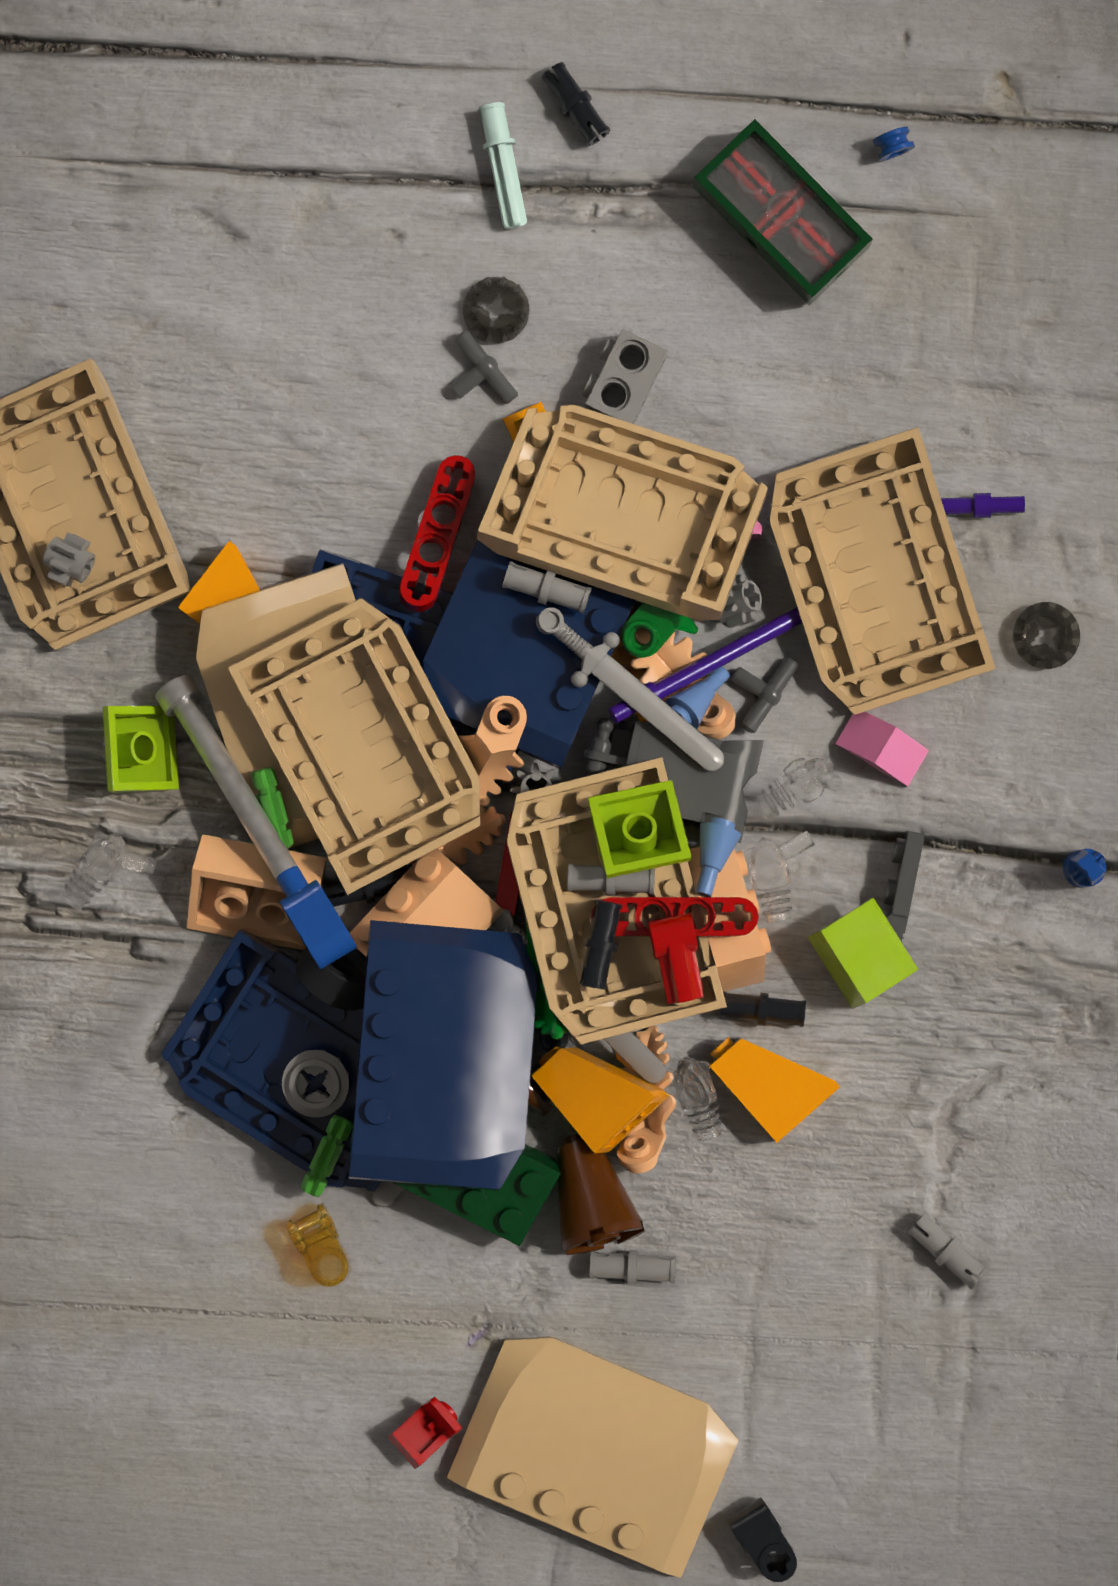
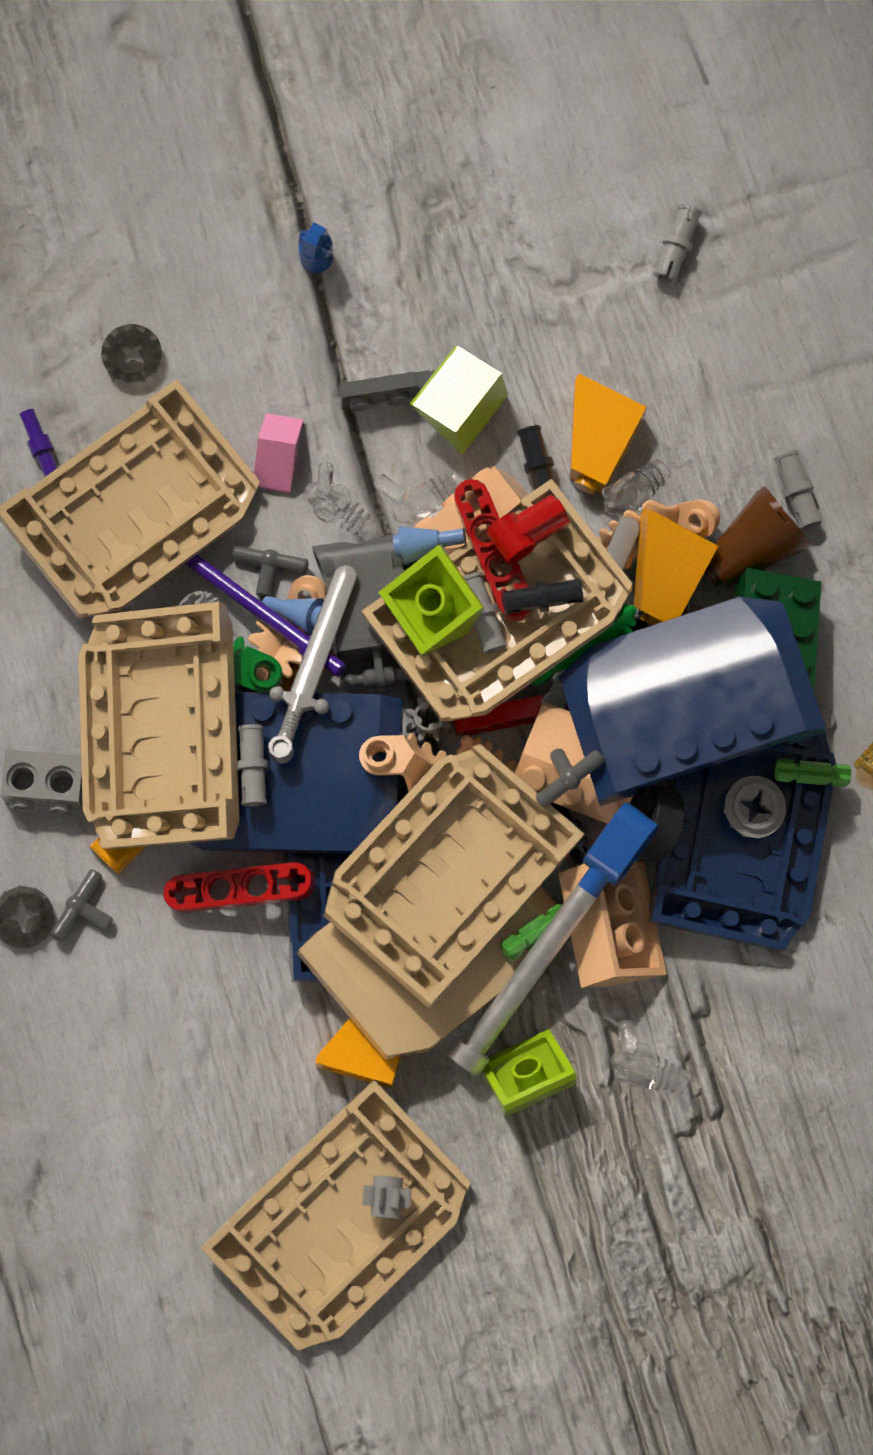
camera: 115 degrees left, 10 degrees down
(407, 900) = (569, 776): none -> dark grey piece

